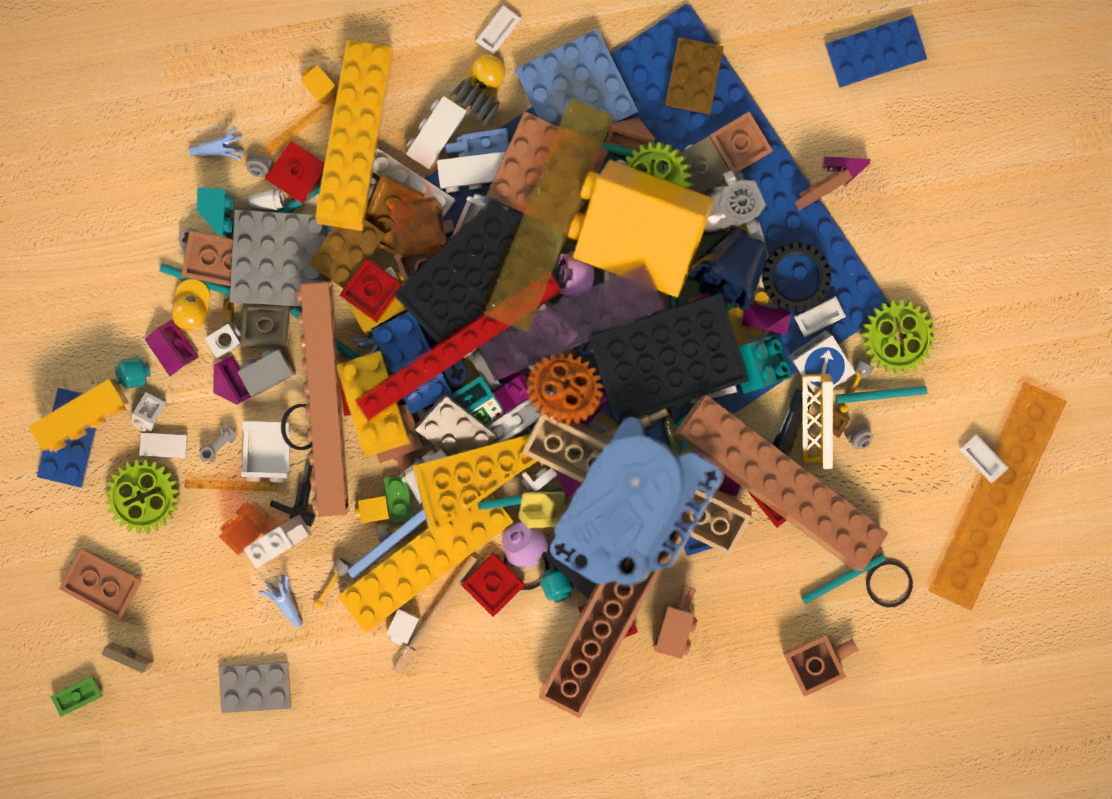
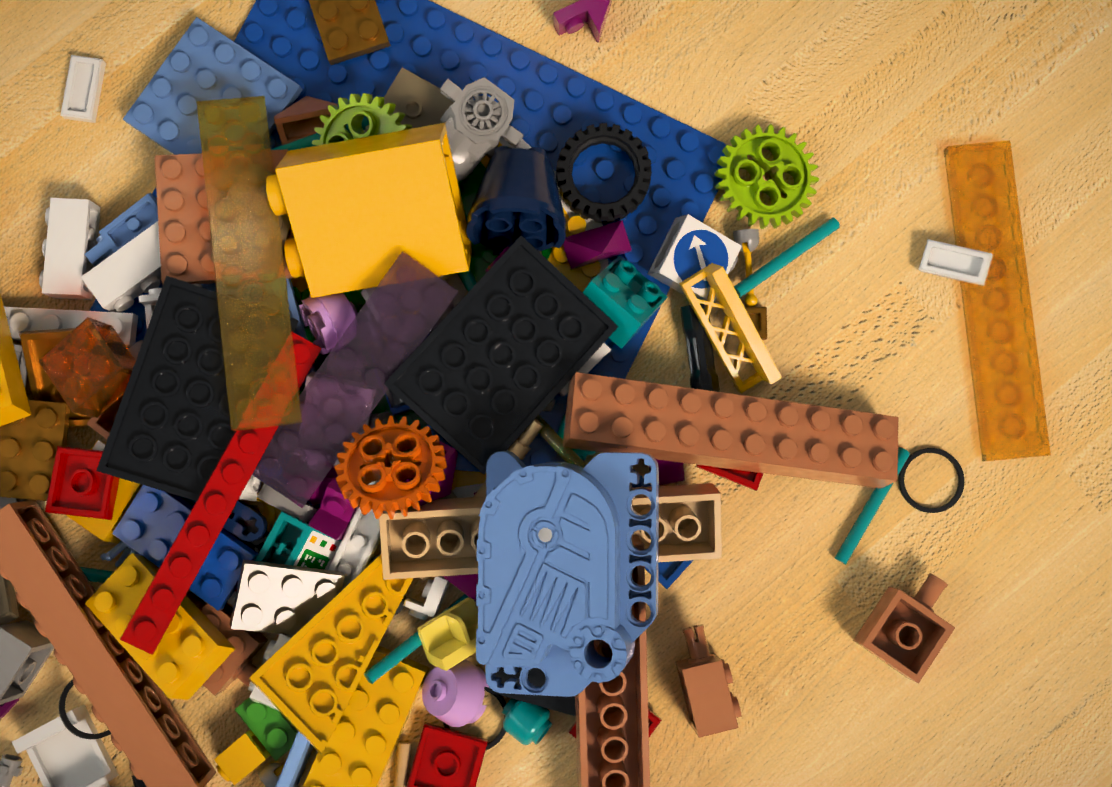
camera: 25 degrees left, 5 degrees down
(476, 100) = (97, 184): dark grey piece -> none
(489, 73) = (98, 154): yellow cap -> none
(741, 143) = (445, 52): nougat plate -> none
(819, 316) = (658, 206): white tile -> none
(822, 188) = (573, 49): nougat plate -> none
(860, 437) = (791, 322): light grey plate -> none

